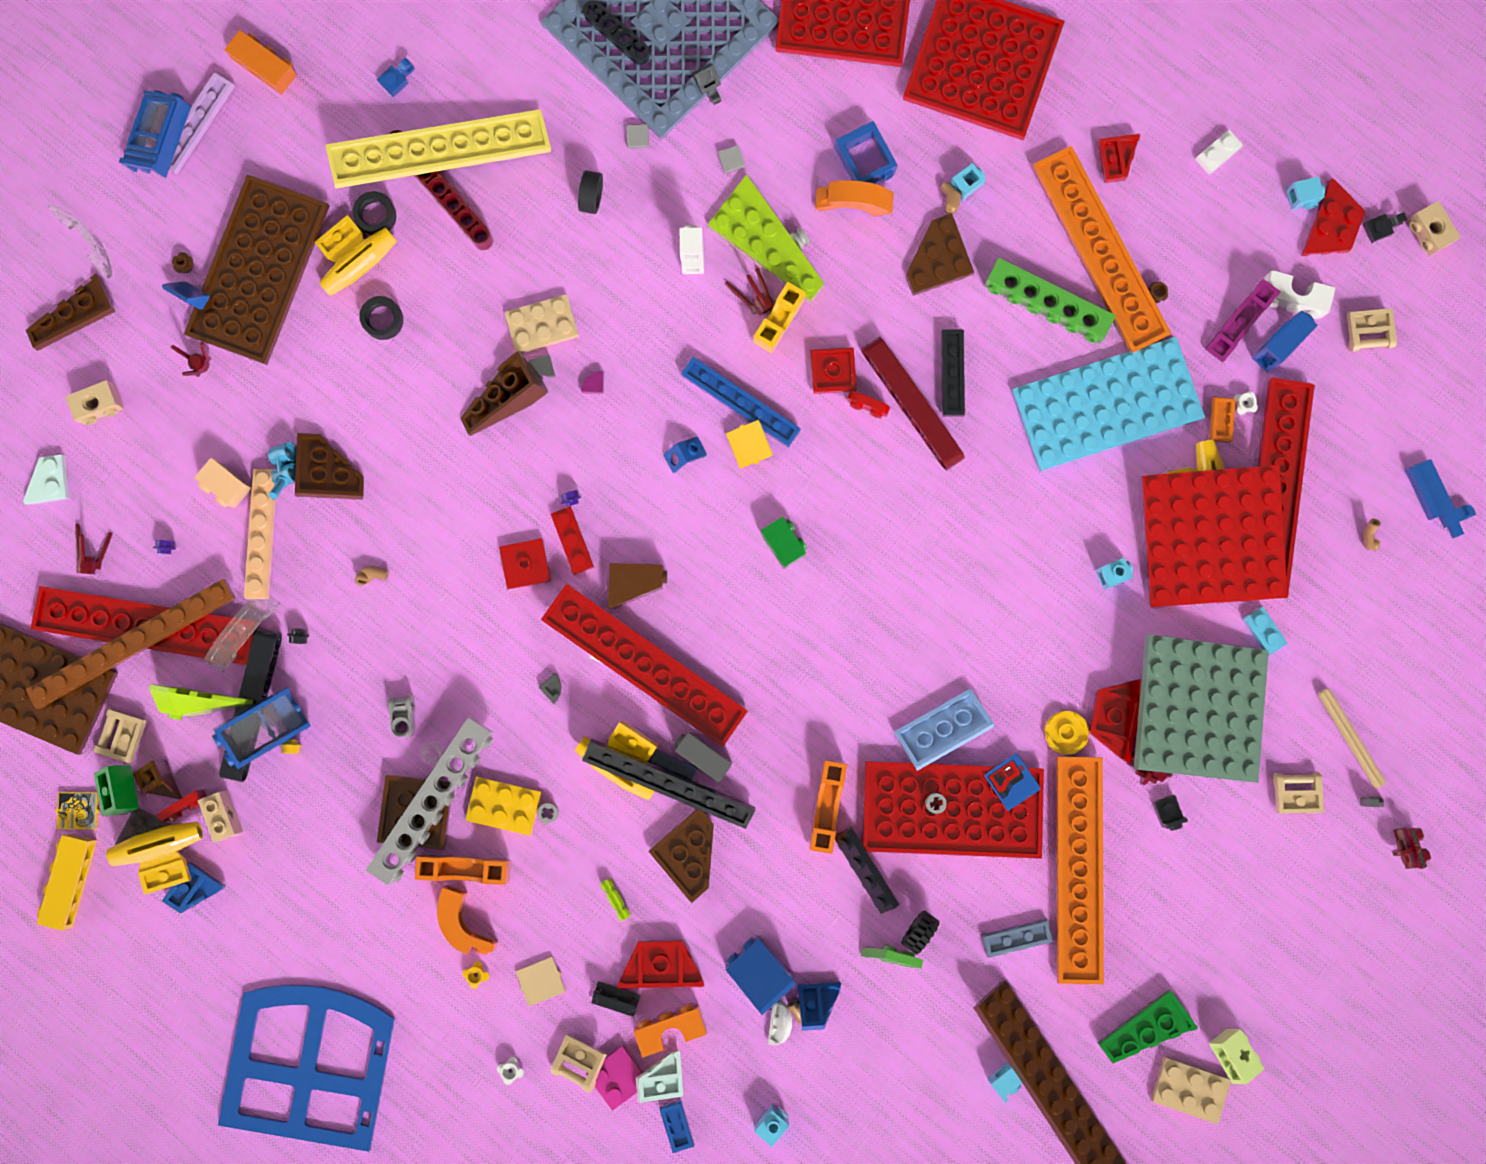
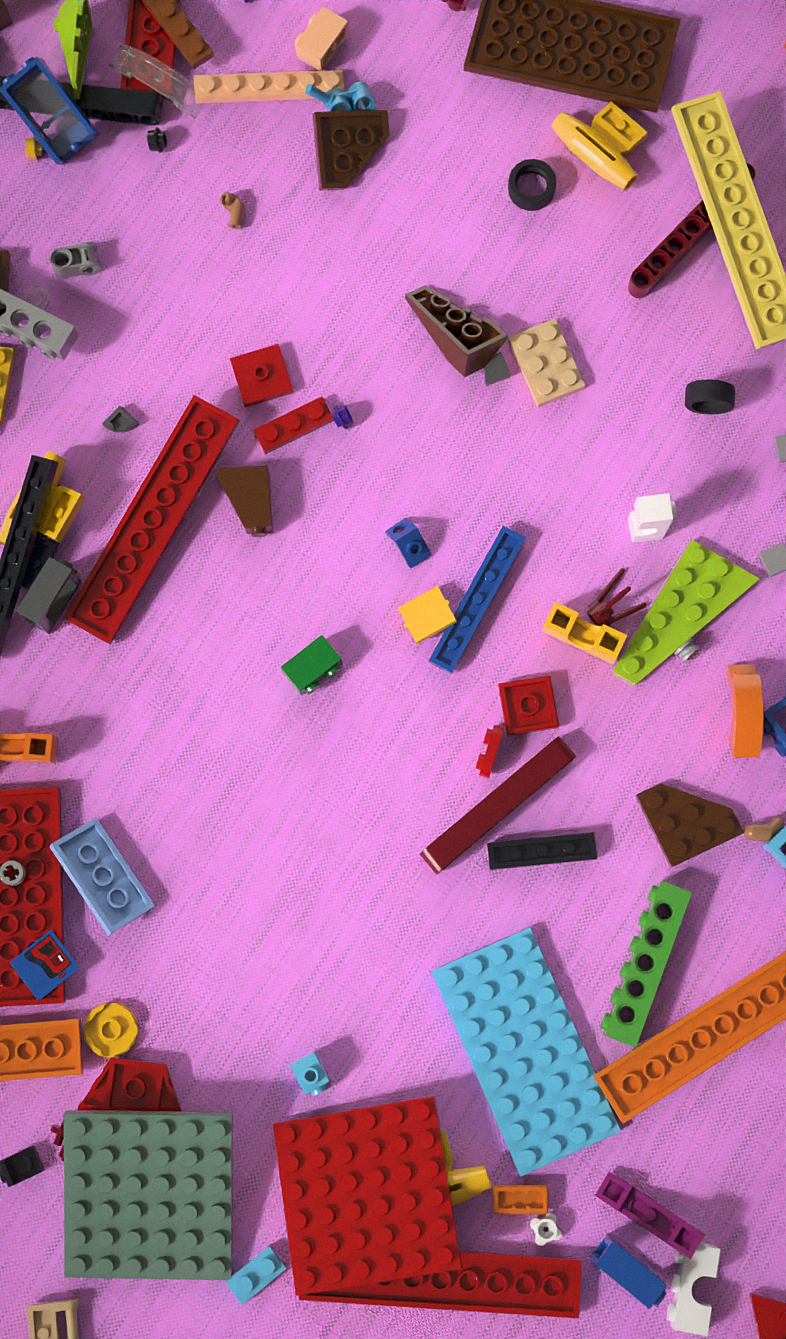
camera: 90 degrees right, 5 degrees down
(366, 199) = (660, 145): black tyre -> none
(594, 383) = (482, 429): magenta tile -> none
(1163, 291) = (681, 1109): reddish brown plate -> none

